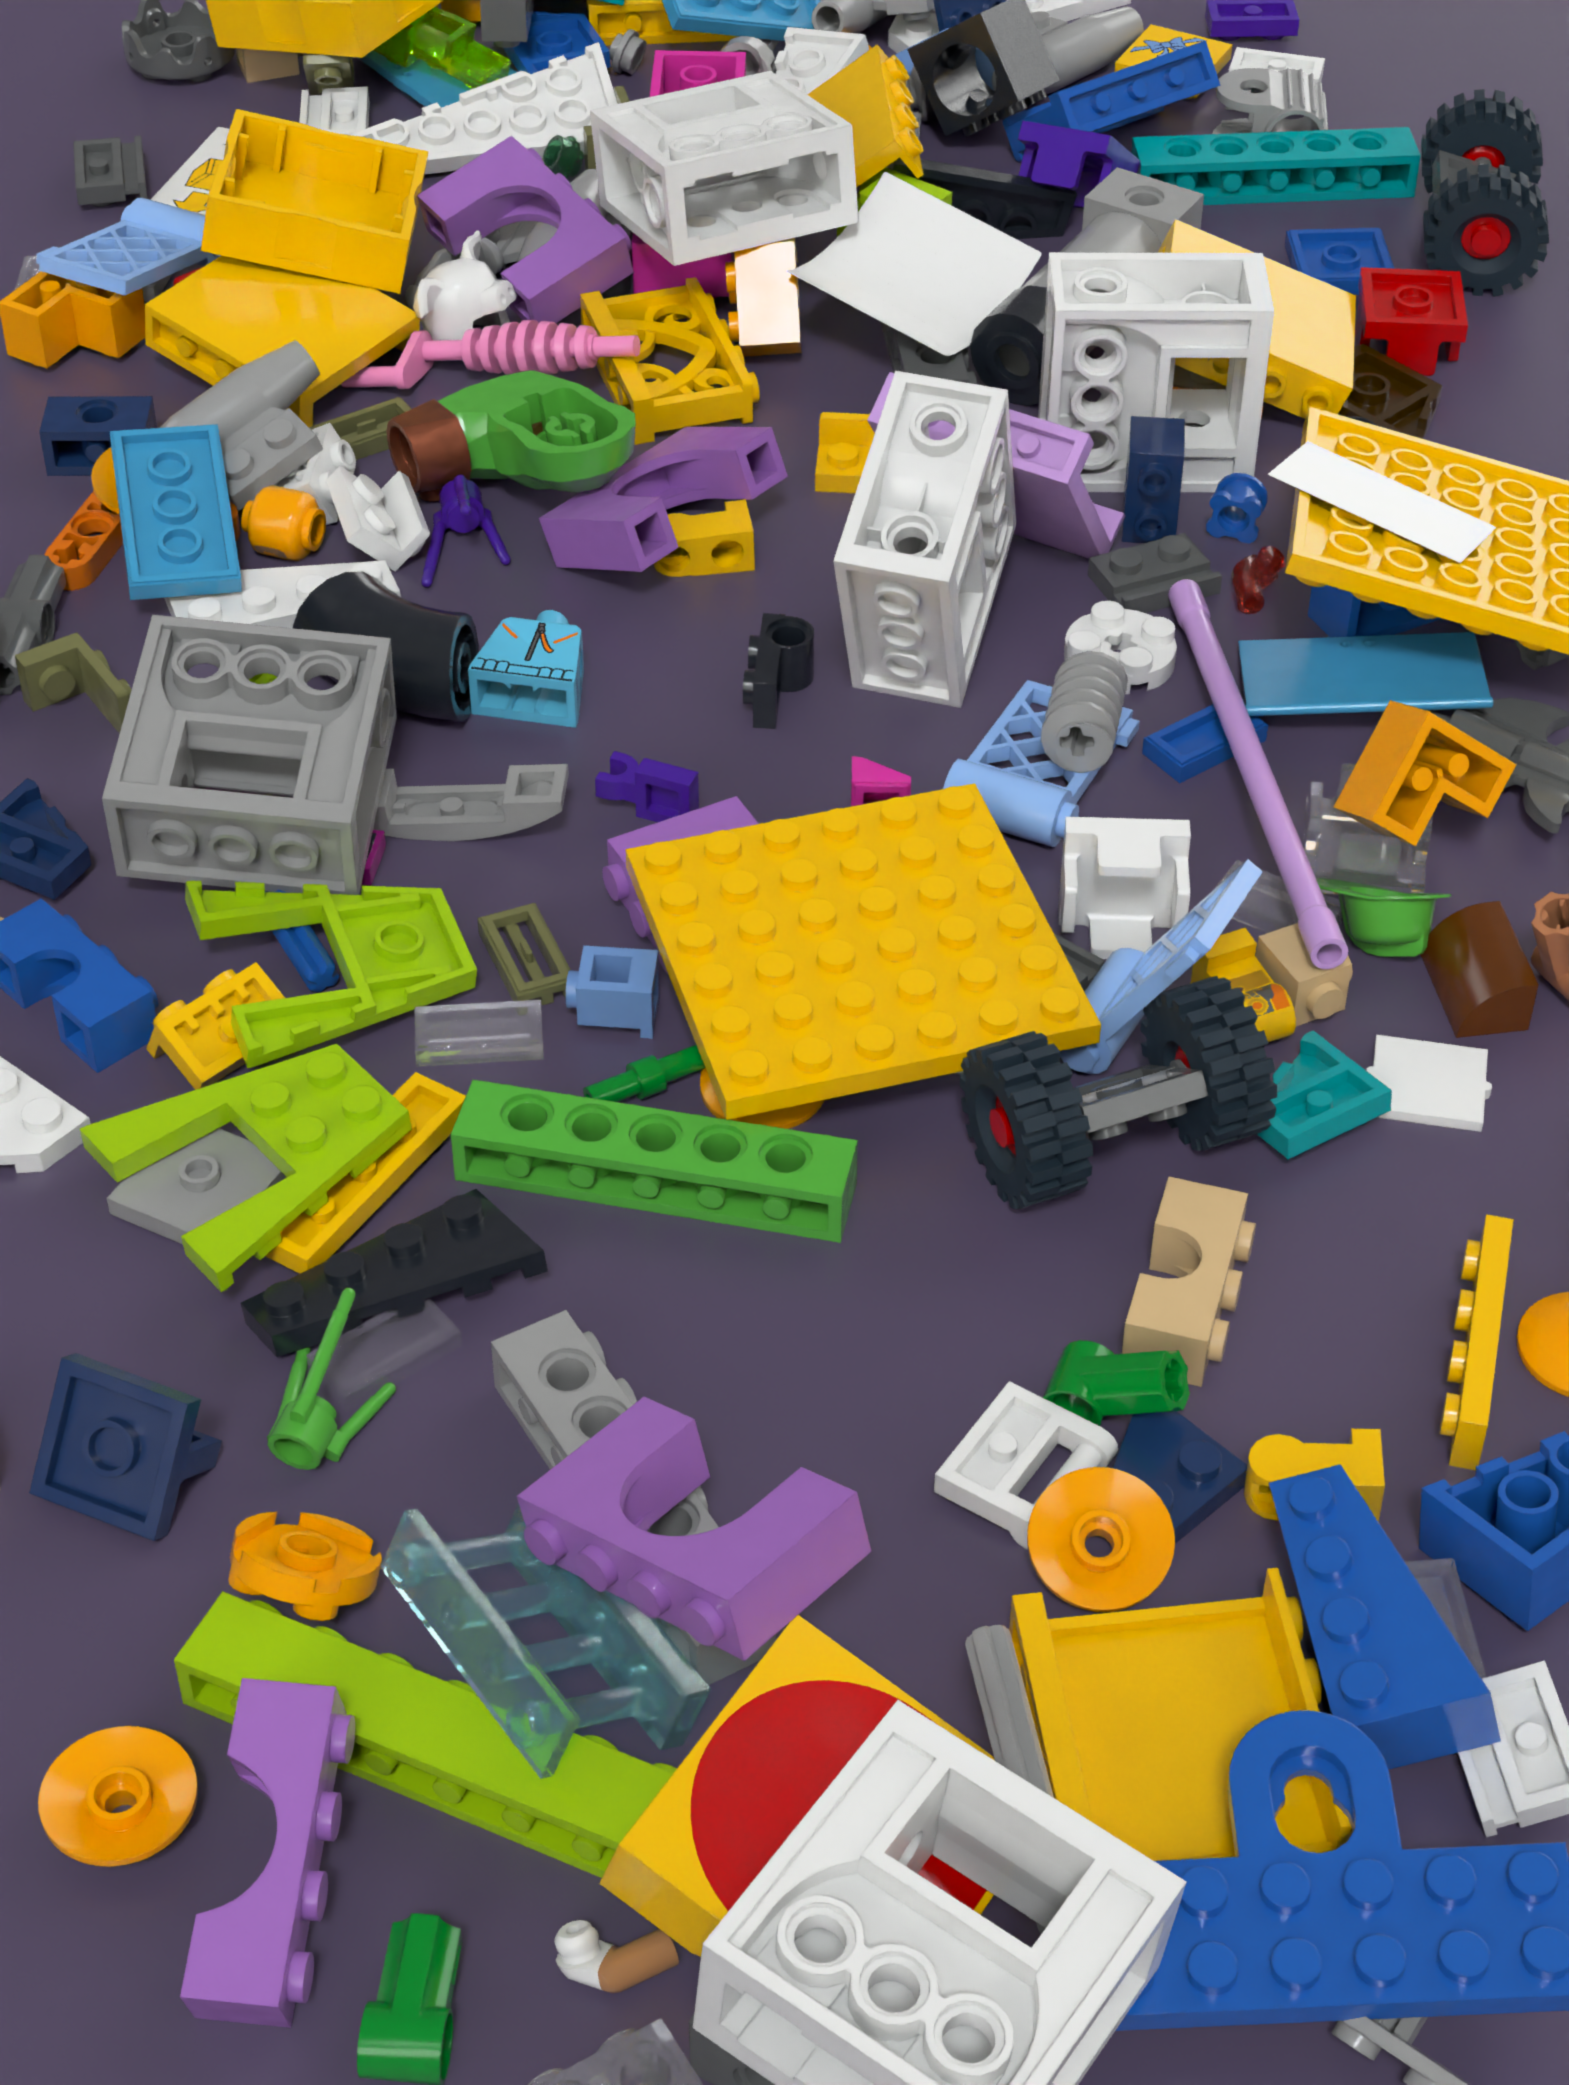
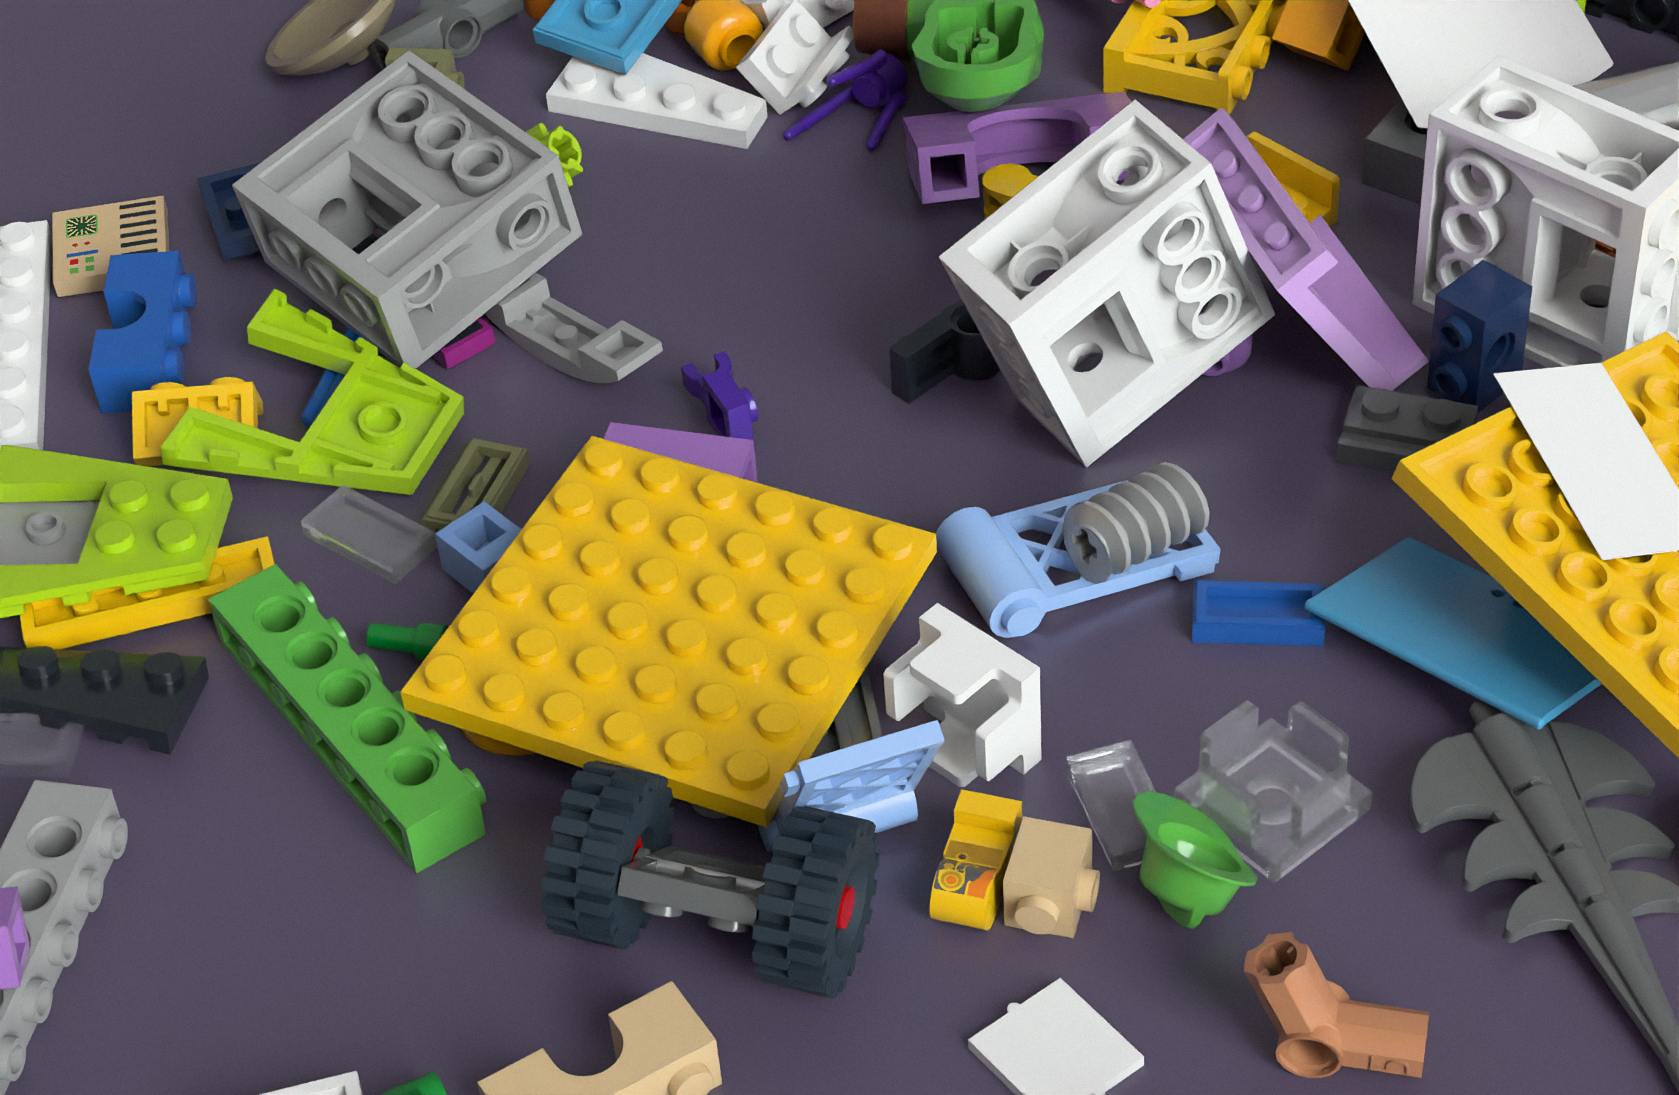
camera: 45 degrees right, 0 degrees up
(427, 643) = (656, 176): black brick -> none
(530, 671) = (758, 249): medium azure torso -> none
(876, 782) = (888, 498): dark pink slope -> none
(1144, 641) = (1288, 460): white plate -> none
(1316, 920) = (1072, 831): lavender piece -> none
(1321, 1097) = (916, 999): teal wing -> none
(1414, 766) = (1335, 733): light orange brick -> none
(1481, 972) = (1209, 992): reddish brown brick -> none

